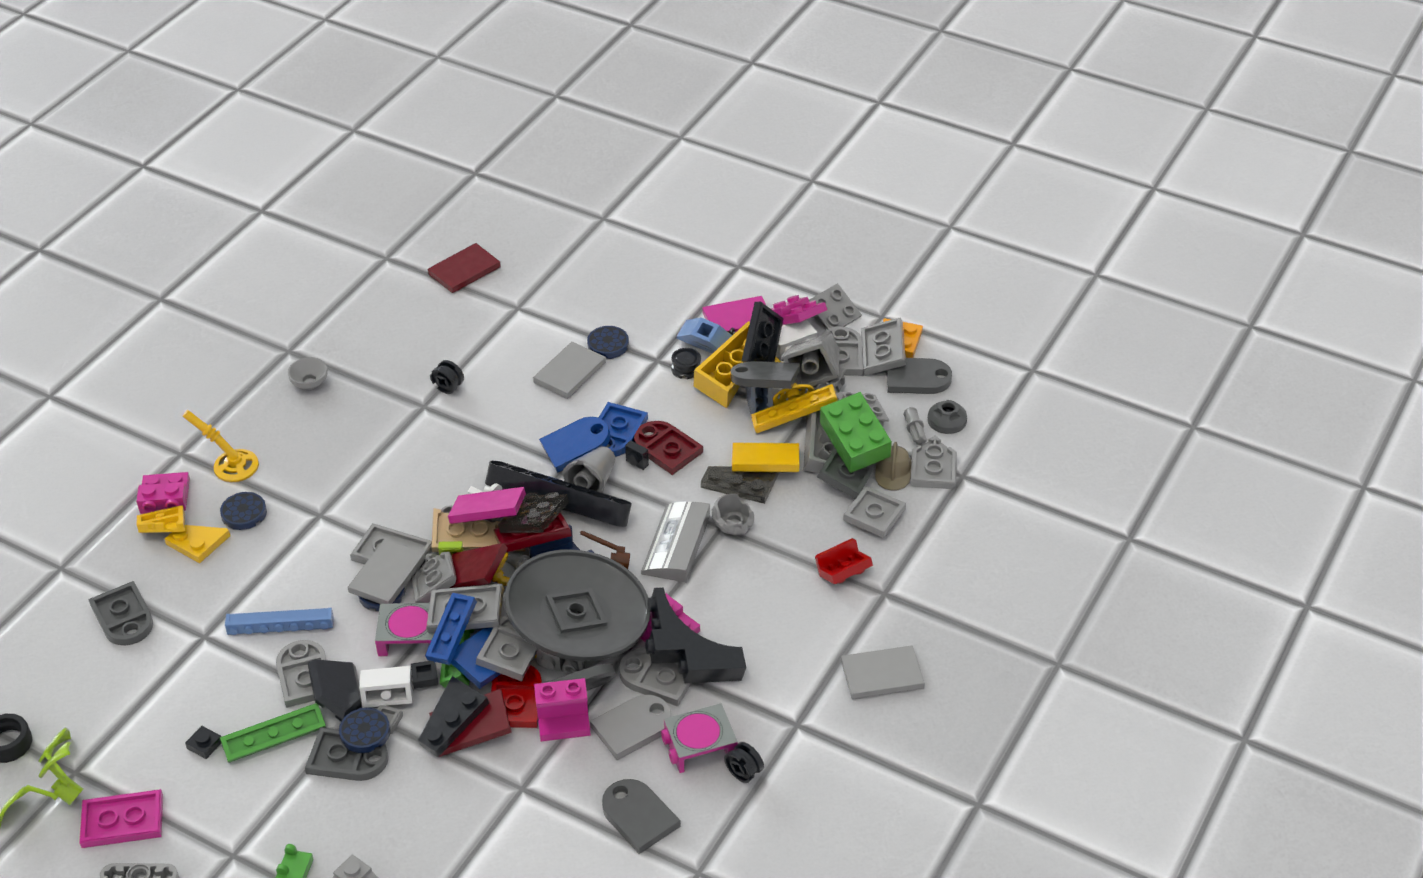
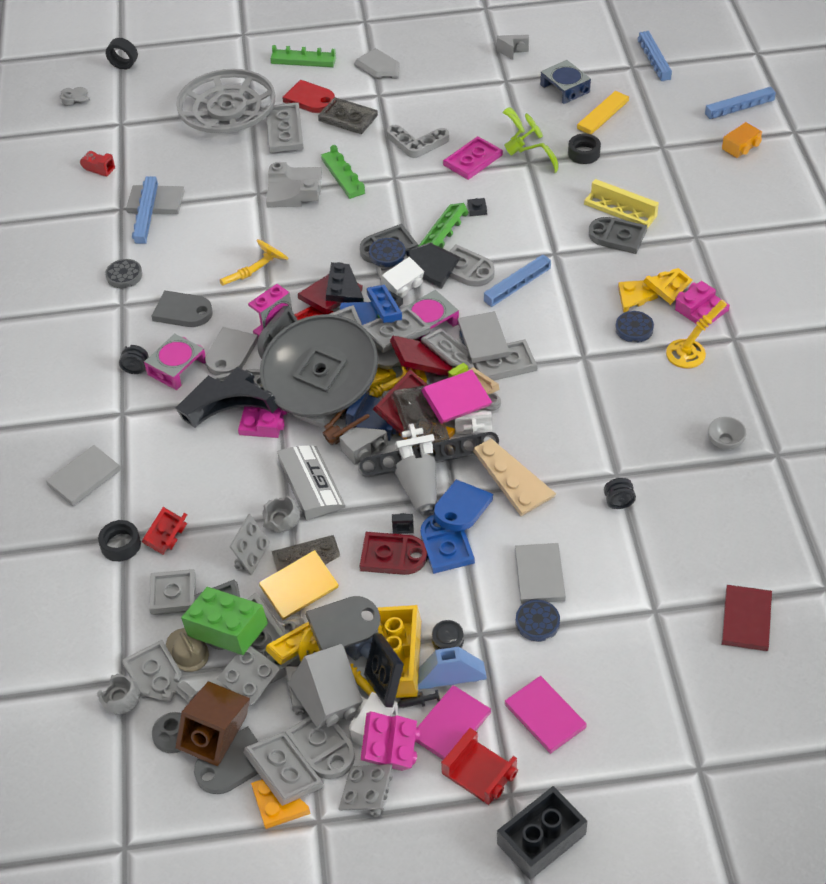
camera: 145 degrees right, 5 degrees up
(65, 642) = (623, 201): none -> light yellow fence
(487, 813) = (269, 254): none -> yellow dish
(512, 435) = (515, 480): none -> tan wing
(568, 482) = (424, 442): none -> white hips
(608, 532) = (362, 443): none -> light grey slope
(667, 289) = (545, 714): none -> dark pink tile
(743, 225) = (541, 832): none -> black brick
(743, 278) = (478, 768): none -> red panel
(782, 503) = (249, 545): none -> light grey hinge
(798, 425) = (291, 624): none -> light grey pin
(888, 595) = (115, 528): none -> black tyre
(914, 383) = (211, 722): none -> reddish brown slope
(975, 451) = (120, 695): none -> light grey hair

